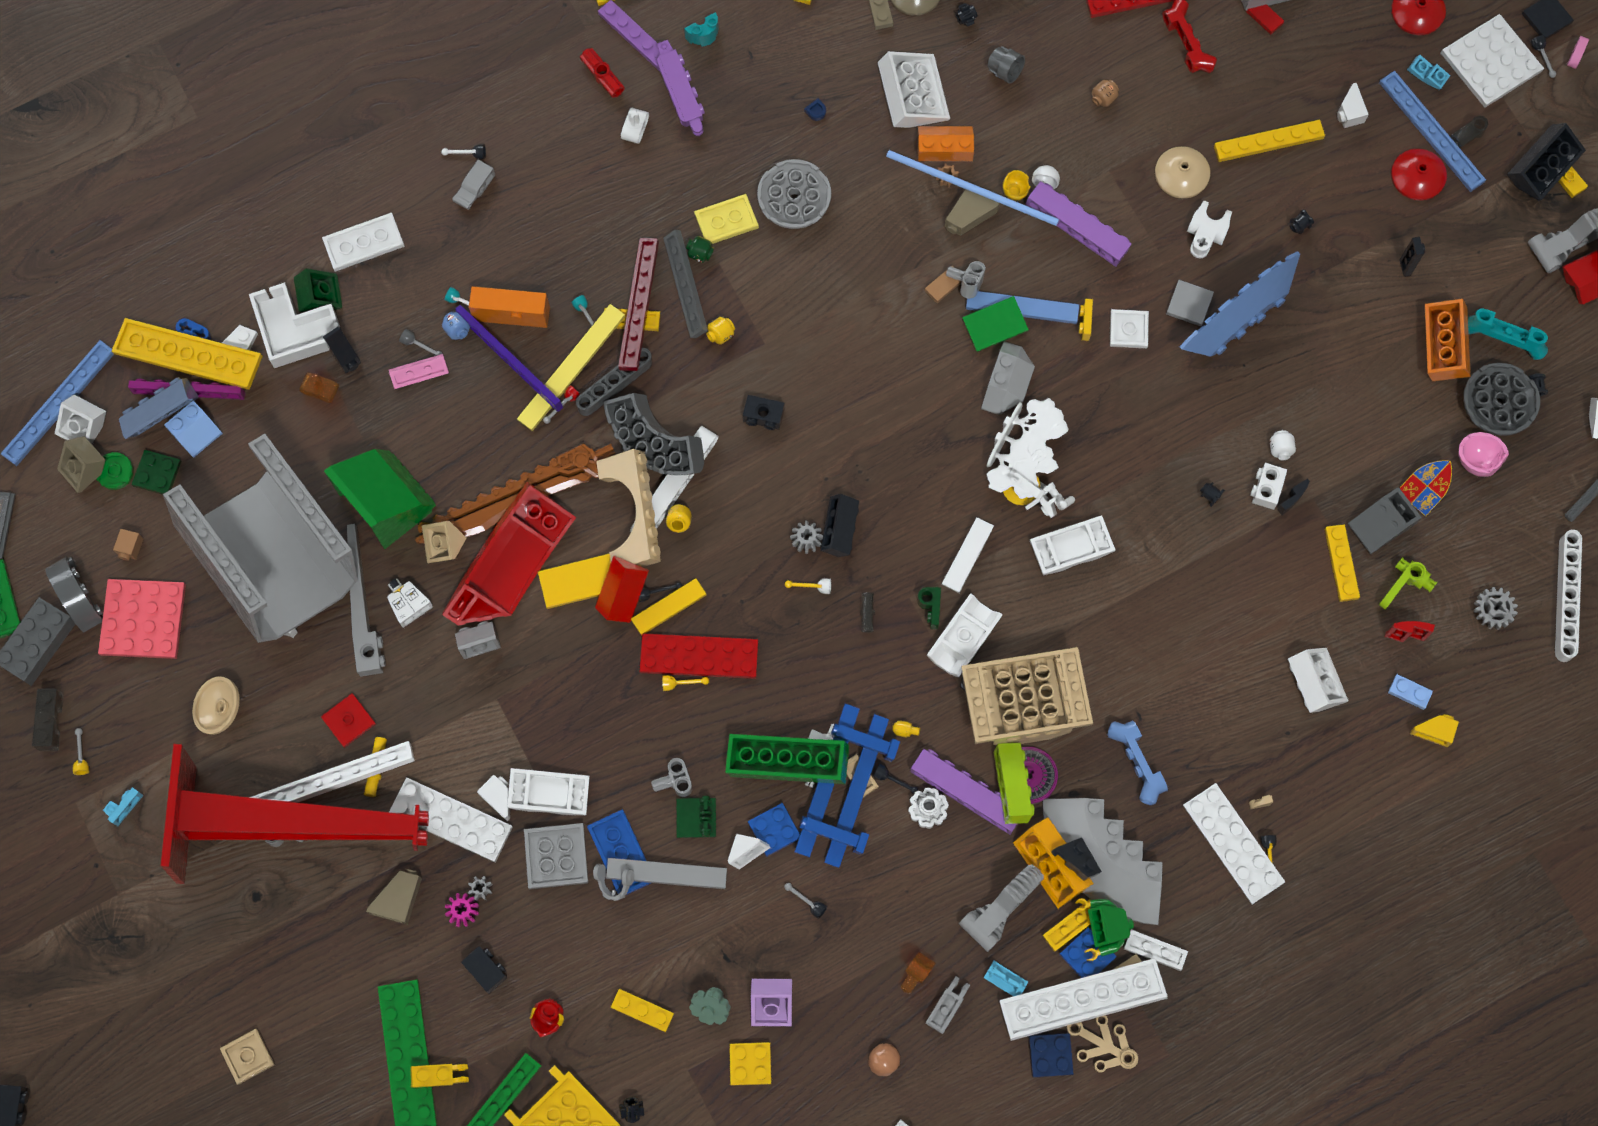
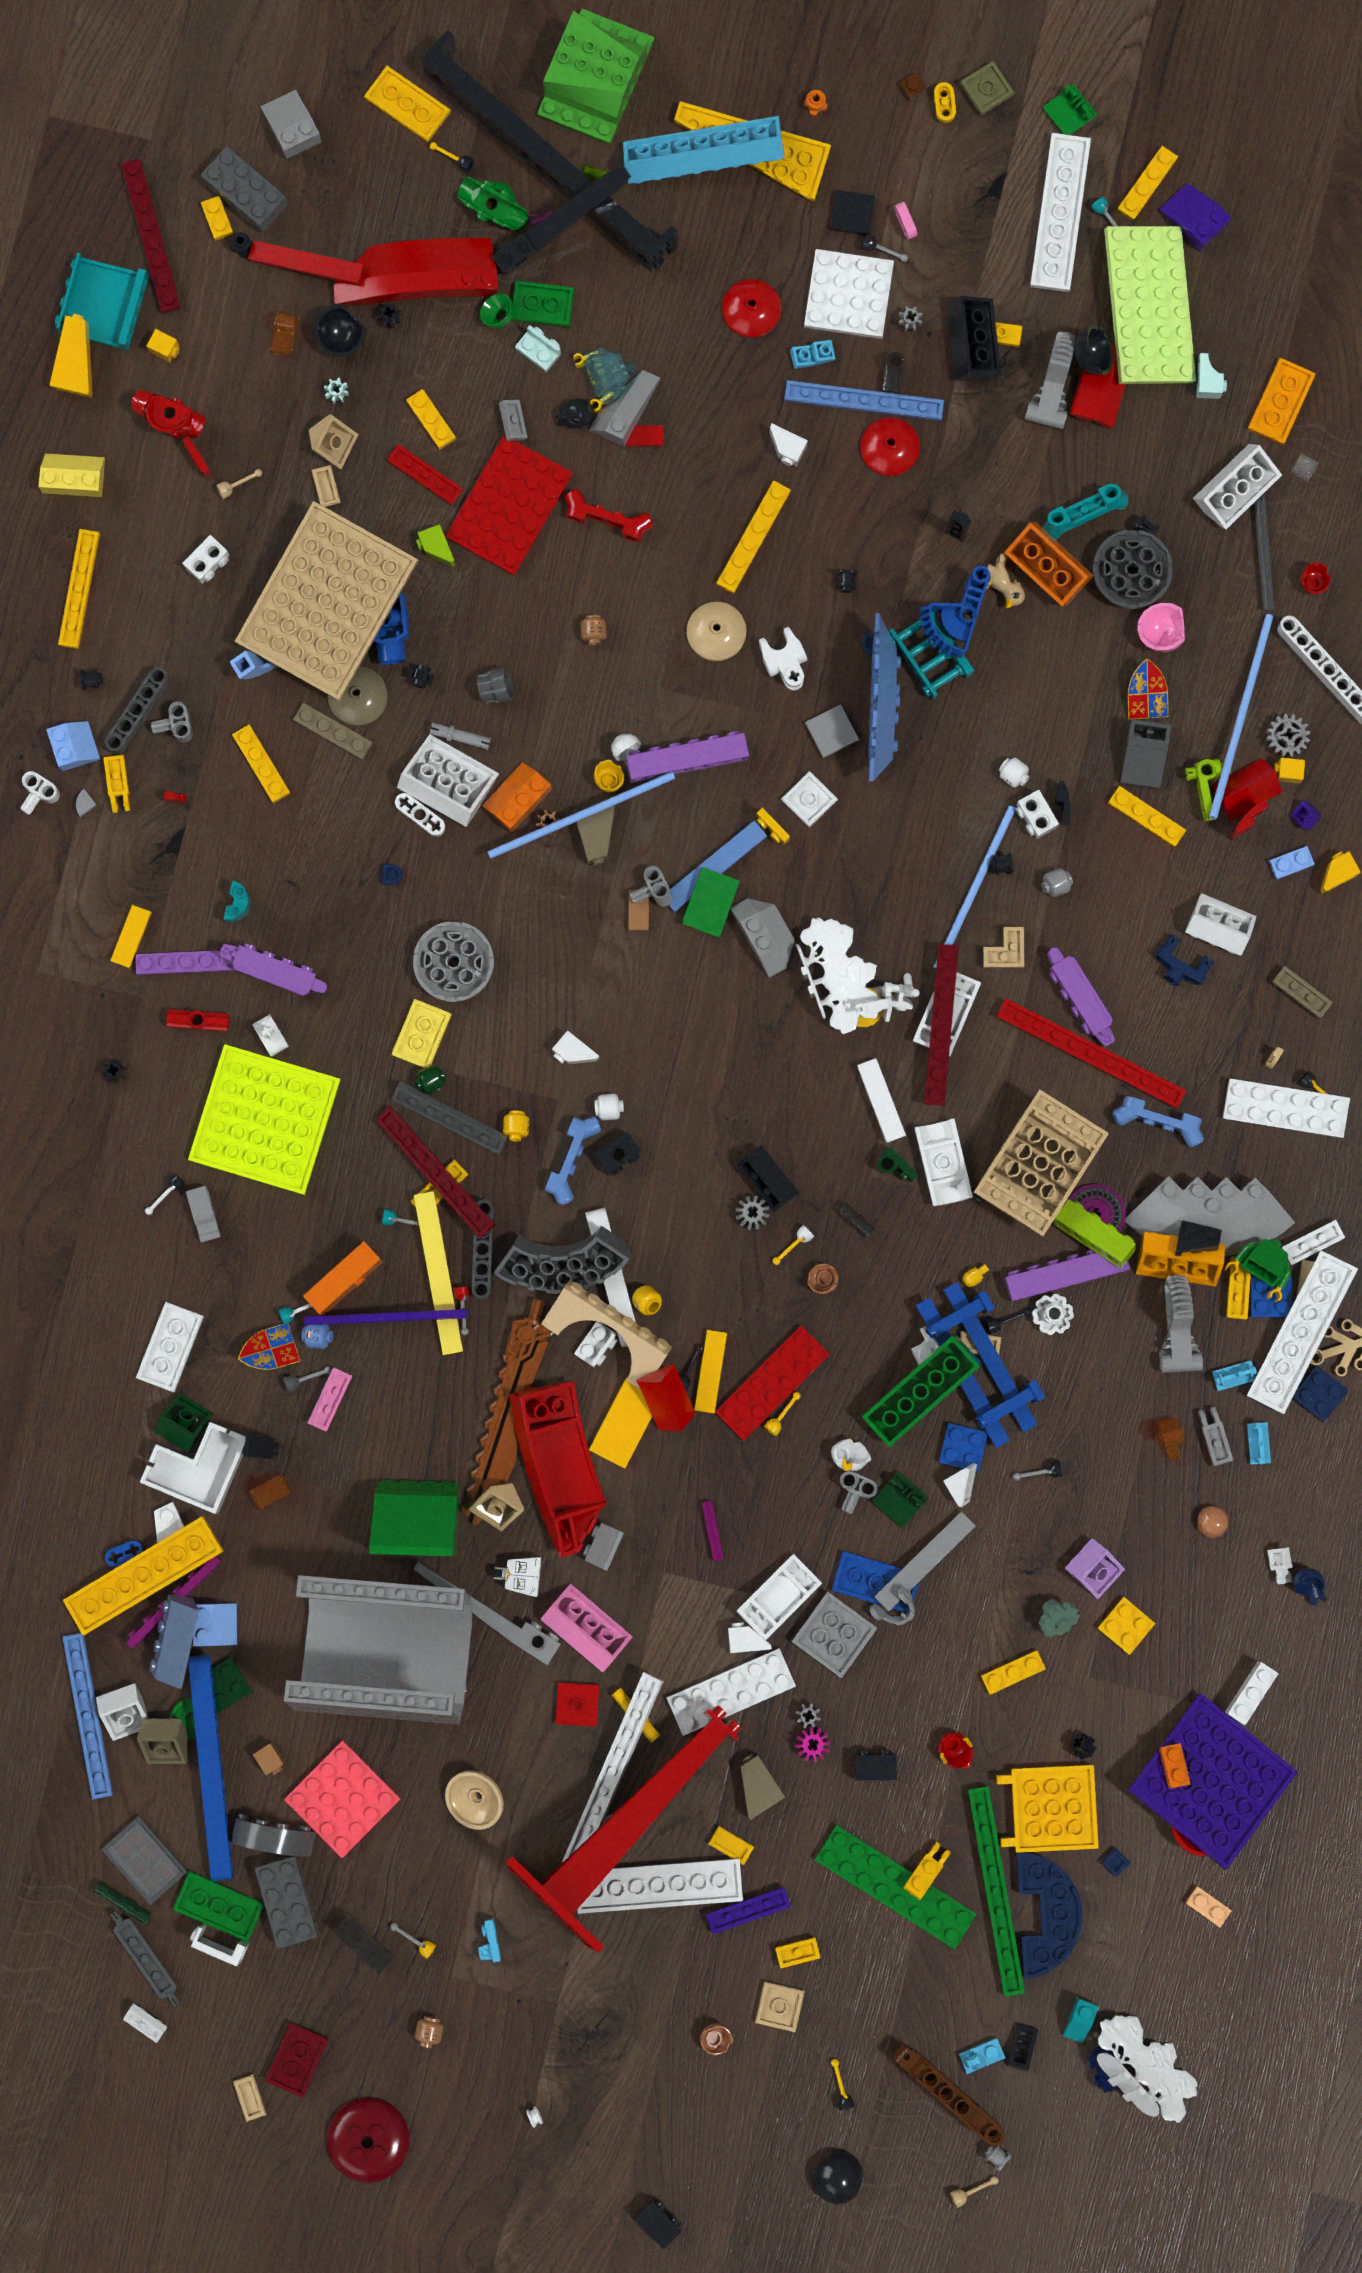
camera: 50 degrees left, 10 degrees up
(17, 948) = (534, 2116): none -> white bush
(20, 819) = (429, 2031): none -> medium nougat head
(87, 510) = (210, 1767): none -> blue beam
(182, 1029) = (716, 2039): none -> nougat hair
(266, 894) = (667, 1886): none -> white plate
(298, 1033) = (797, 1952): none -> yellow plate
(299, 970) = (748, 1910): none -> dark purple plate
(338, 917) = (731, 1845): none -> yellow tile
(408, 678) = (586, 1628): none -> bright pink slope
(418, 303) = (270, 1349): none -> shield
(519, 51) = (119, 1074): none -> black gear
(555, 706) = (712, 1529): none -> magenta axle
(574, 170) = (264, 1119): none -> neon yellow plate
(616, 513) = (596, 1344): none -> white bracket
(695, 752) = (850, 1455): none -> white hair
(755, 374) = (558, 1183): none -> medium blue plate
(790, 378) = (608, 1107): none -> white head
(804, 625) = (823, 1279): none -> nougat hair
(807, 323) = (573, 1050): none -> white slope
(876, 86) = (411, 801): none -> white beam
(947, 66) = (460, 735): none -> light grey pin
(973, 1042) = (1259, 1443): none -> medium azure hinge
(1059, 548) = (941, 1025): none -> dark red plate
(1139, 671) = (1091, 1053): none -> red plate
(1154, 554) = (1011, 953): none -> tan plate
(1173, 628) = (1082, 996): none -> medium lavender hinge
(1176, 490) = (980, 876): none -> light blue piece
(1235, 540) = (1057, 882): none -> light grey head
(1256, 678) = (1179, 970): none -> dark blue connector
(1322, 331) = (961, 668): none -> teal fence
(1326, 780) = (1302, 992): none -> dark tan plate
(1348, 306) = (952, 615): none -> blue arm
(1403, 319) = (1000, 581): none -> tan animal
(1432, 610) = (1248, 788): none -> red slope
(1453, 671) = (1306, 815): none -> dark purple slope
(1472, 631) = (1290, 770): none -> yellow brick
(1475, 563) = (1241, 716): none -> light blue piece
(1516, 111) = (913, 314): none -> light grey gear

